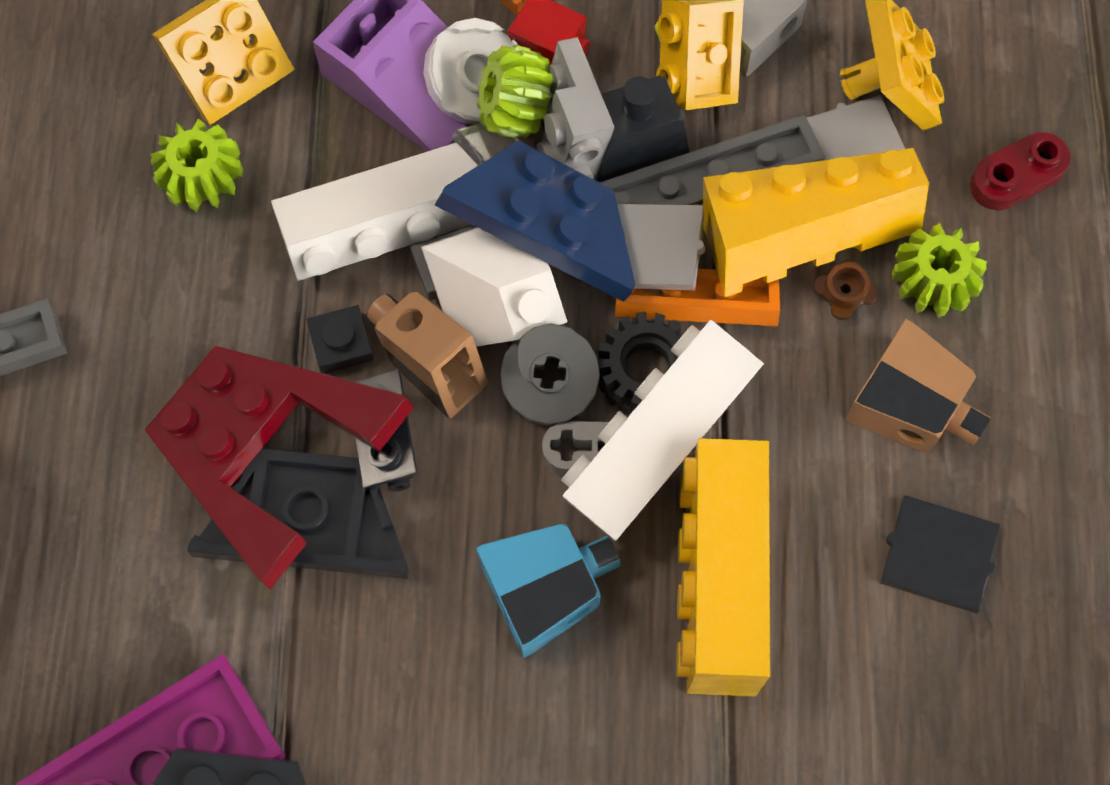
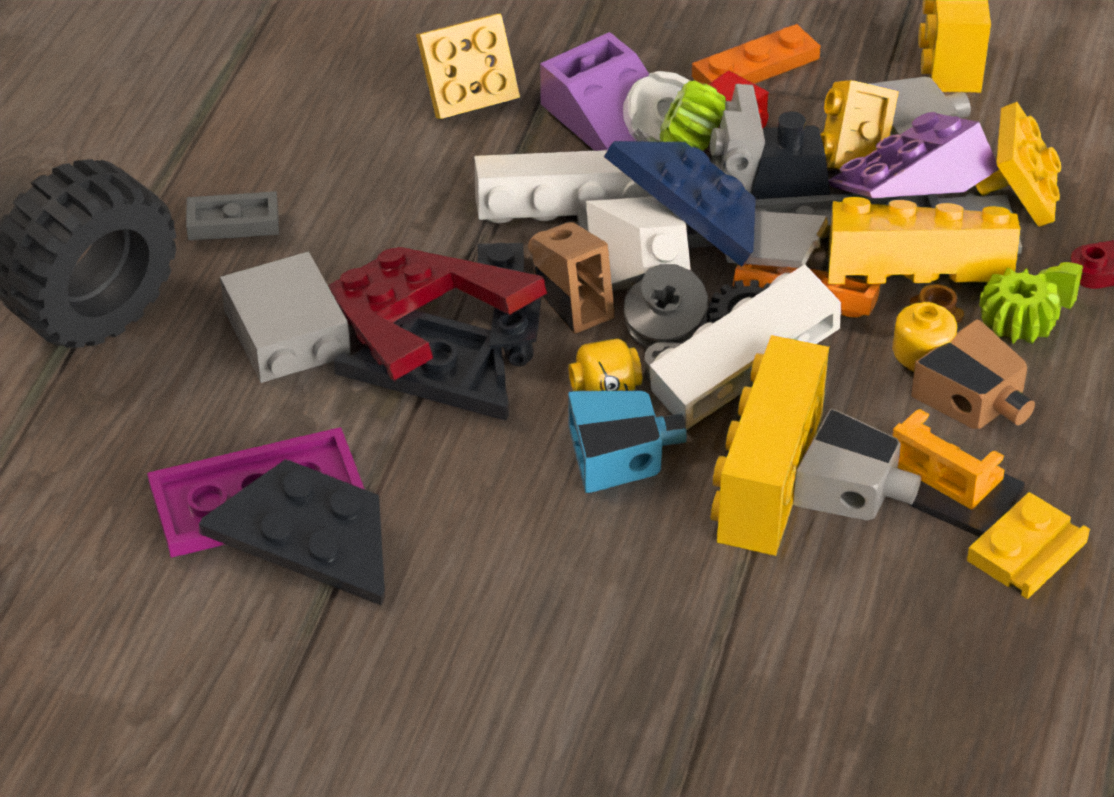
camera: 15 degrees right, 25 degrees down
(110, 494) = (285, 316): none -> light grey brick
(196, 165) = (422, 136): lime gear -> none
(504, 484) = (606, 367): none -> yellow head
(784, 95) = (929, 158): none -> medium lavender slope
(820, 563) = (852, 470): none -> light grey torso
(849, 349) = (921, 330): none -> yellow head
(915, 528) = (944, 464): none -> light orange hinge
(975, 224) = (1067, 279): none -> lime tile
(1025, 616) = (1027, 545): none -> yellow plate

